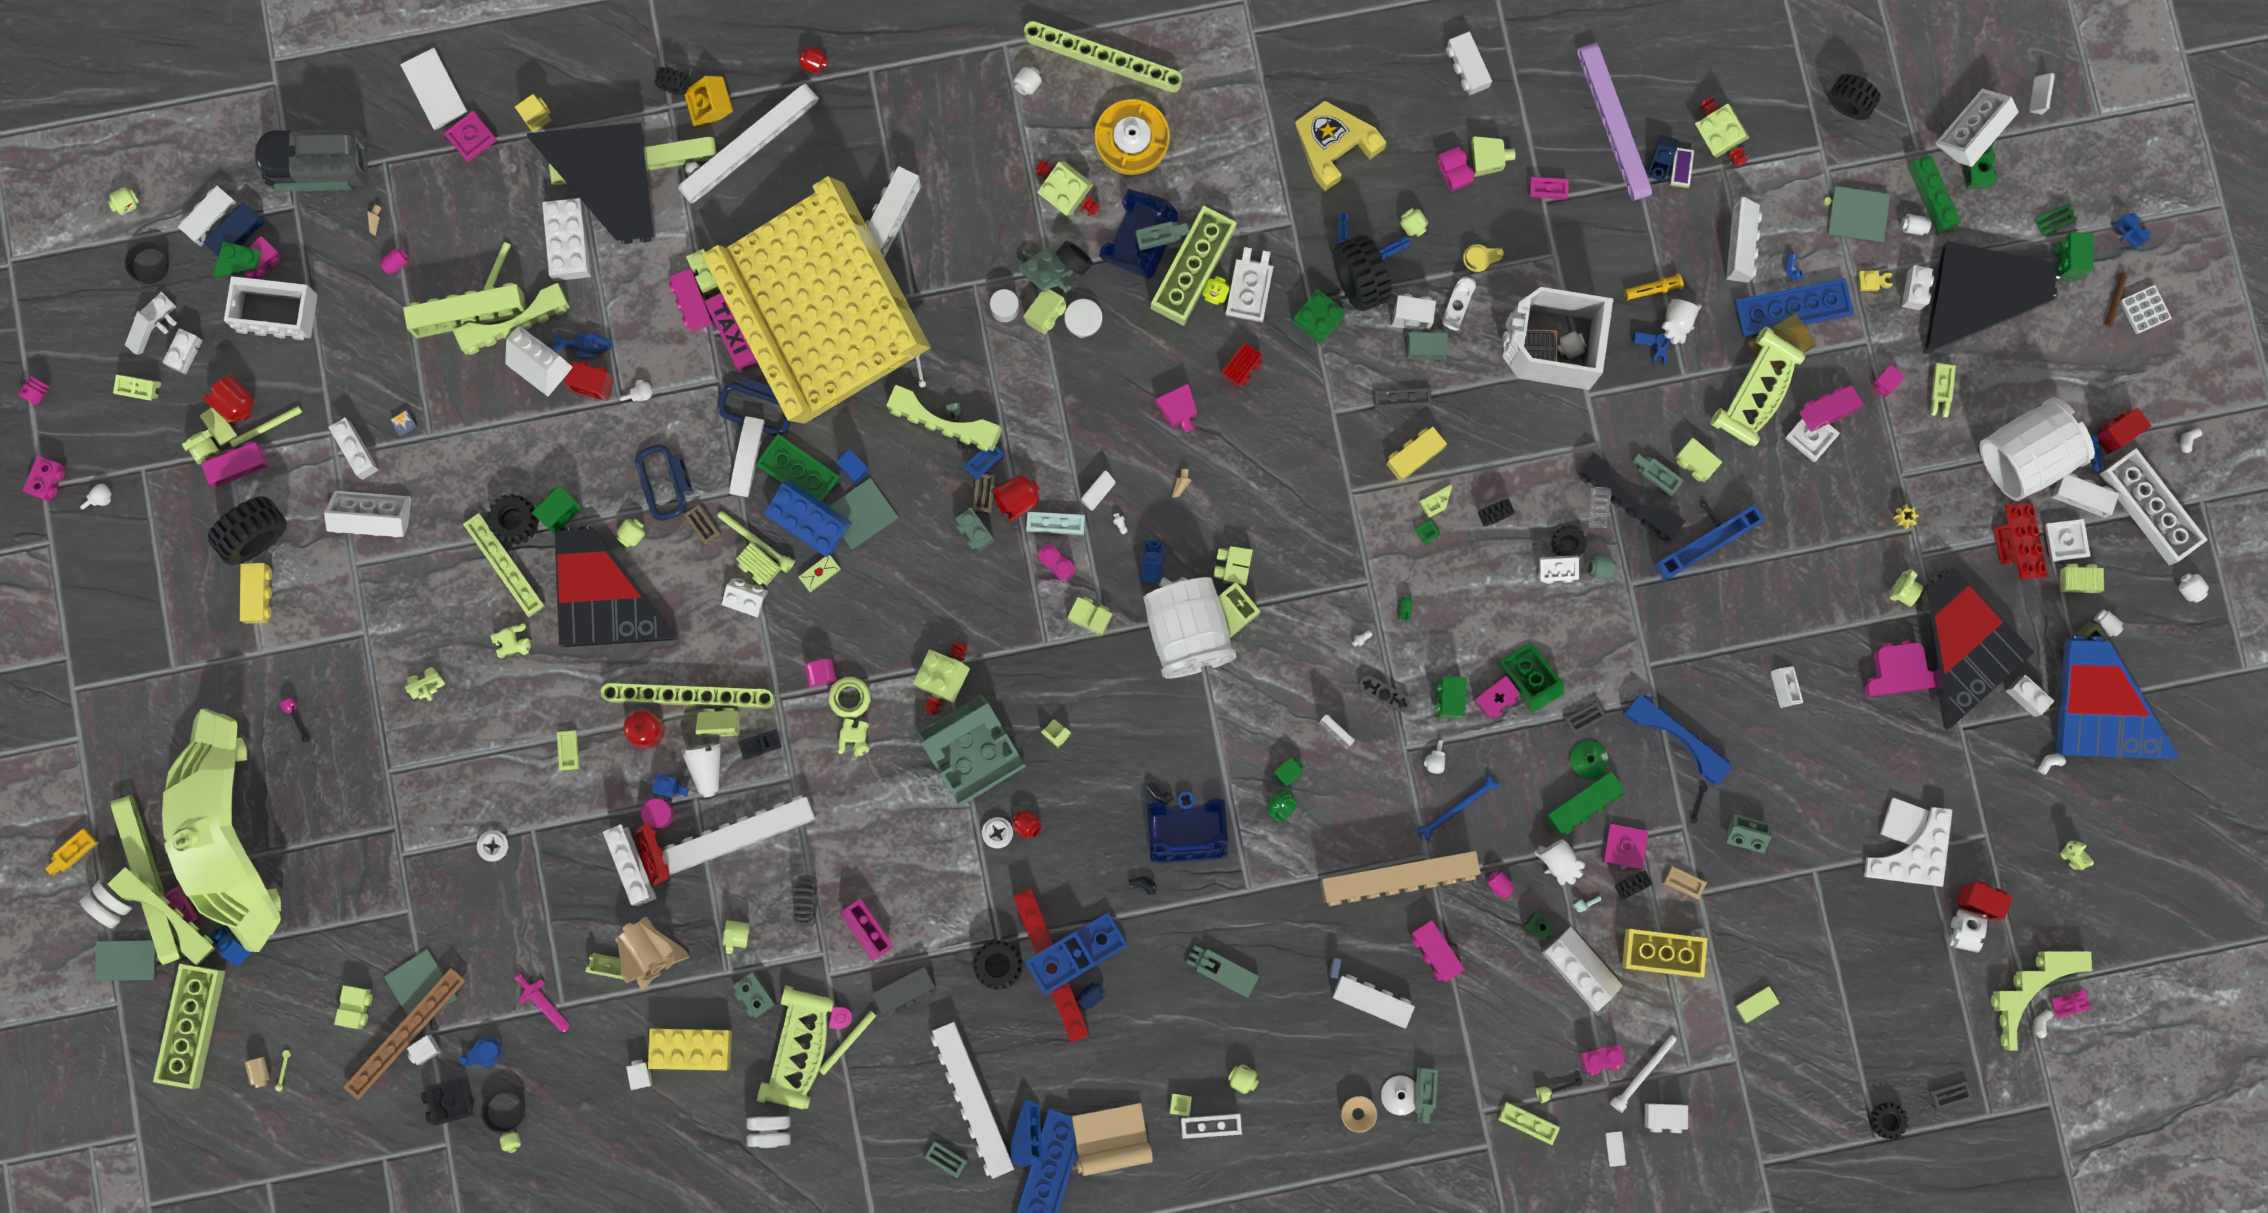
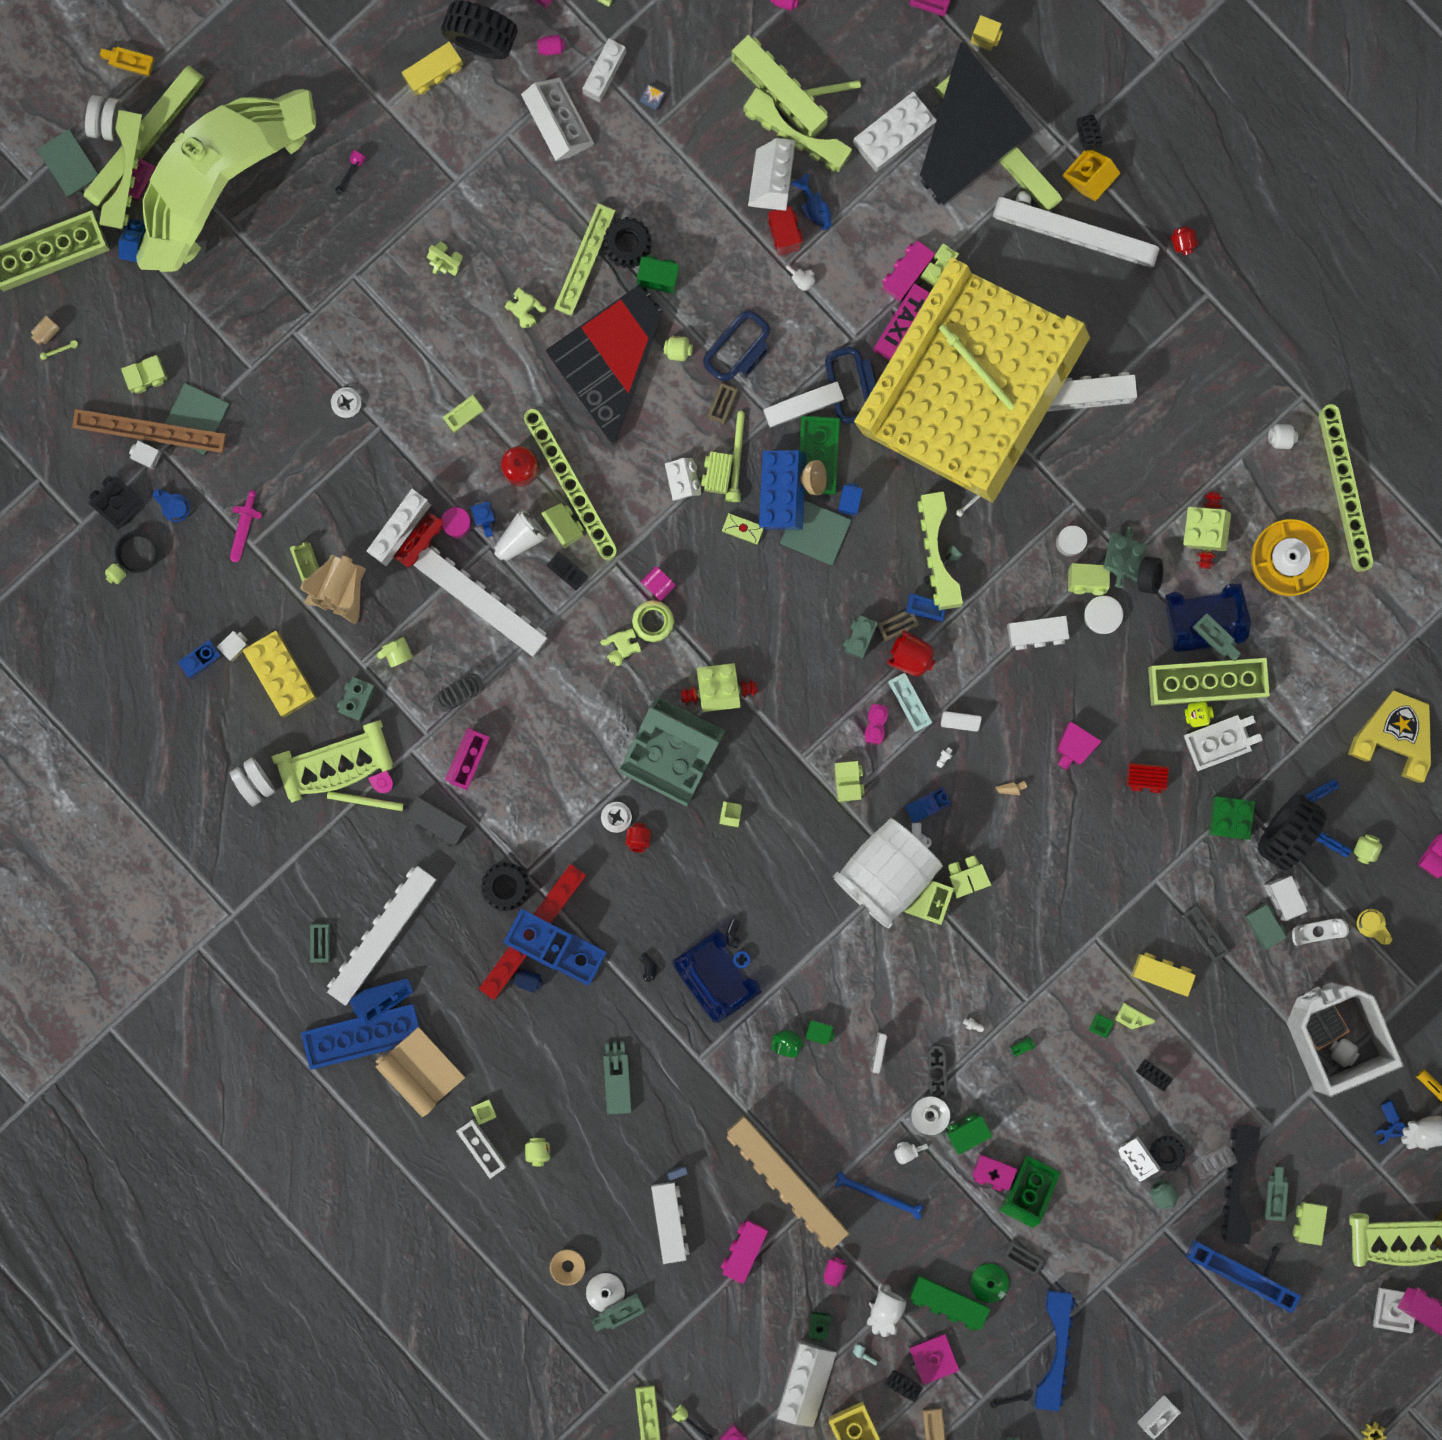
camera: 60 degrees right, 5 degrees up
(302, 480) = (551, 45): none -> dark pink brick
(632, 1112) = (199, 659): none -> blue slope
(775, 295) = (954, 341): none -> yellowish green bar
(814, 484) = (814, 477): none -> tan piece
(1064, 380) = (1038, 632): none -> white brick
(1426, 719) = (932, 1125): none -> white dish

